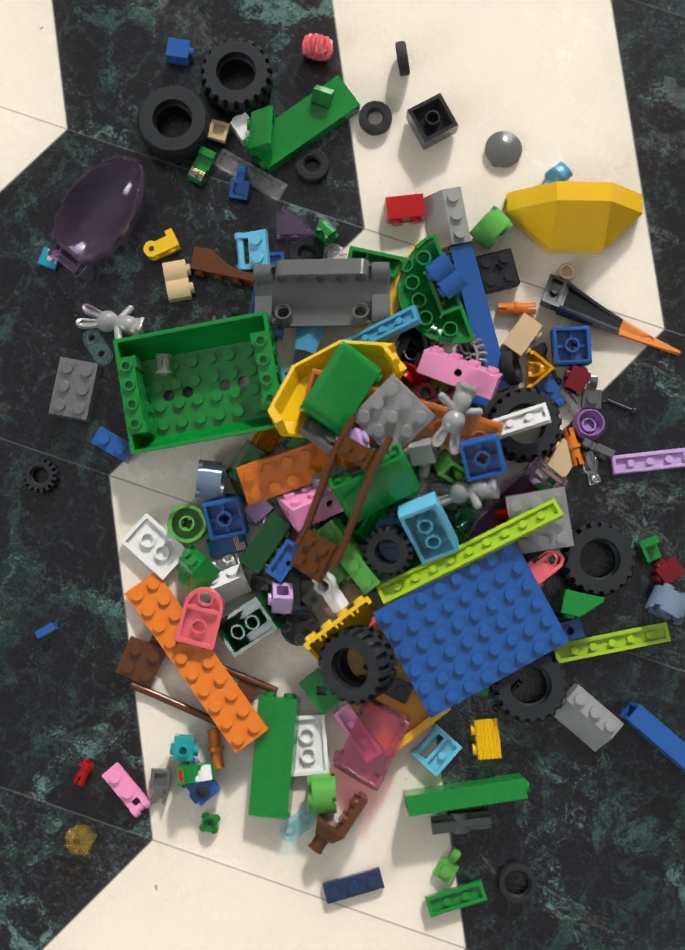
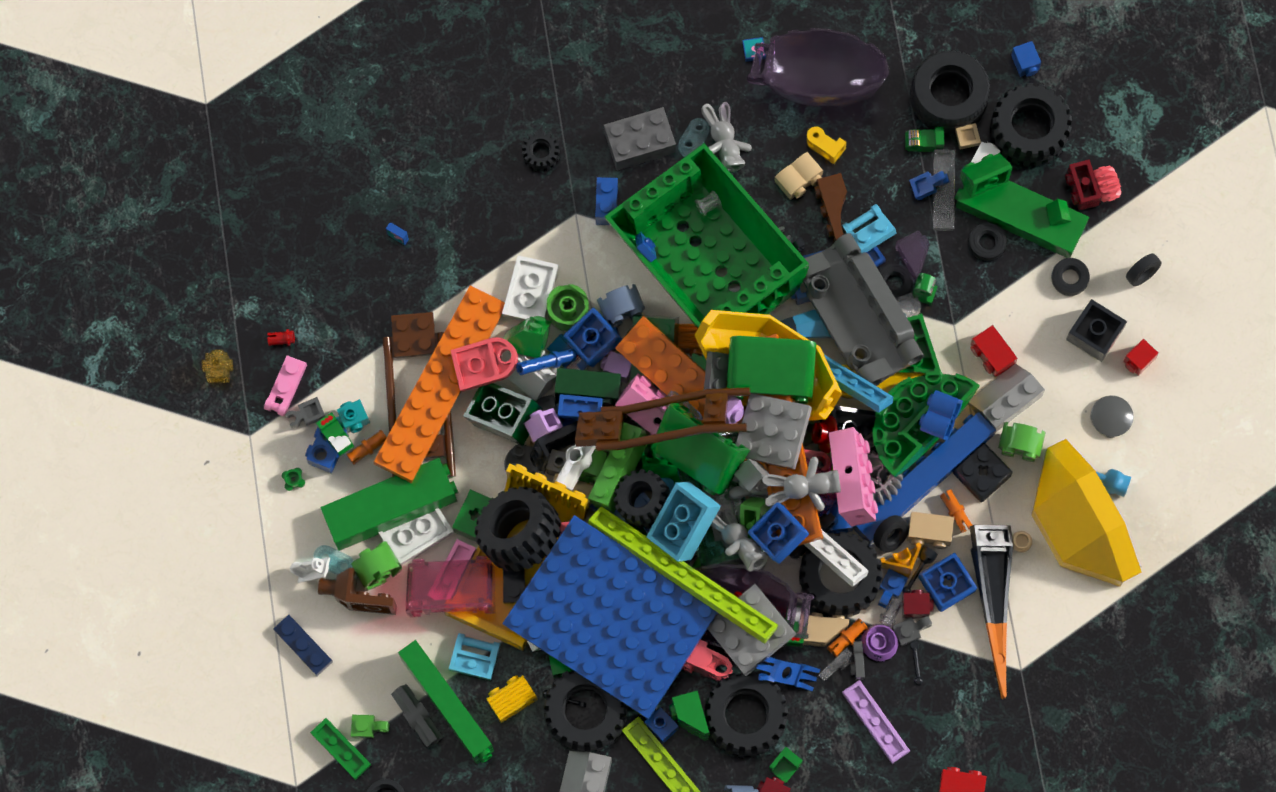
camera: 70 degrees right, 10 degrees down
(174, 434) = (645, 246): none -> blue plate
(227, 559) = (553, 360): none -> blue pin
(296, 849) = (311, 569): none -> white hinge
(308, 65) = (1083, 185): none -> dark red brick
(469, 101) = (1140, 357): none -> red brick
(587, 505) = (796, 672): none -> blue piece

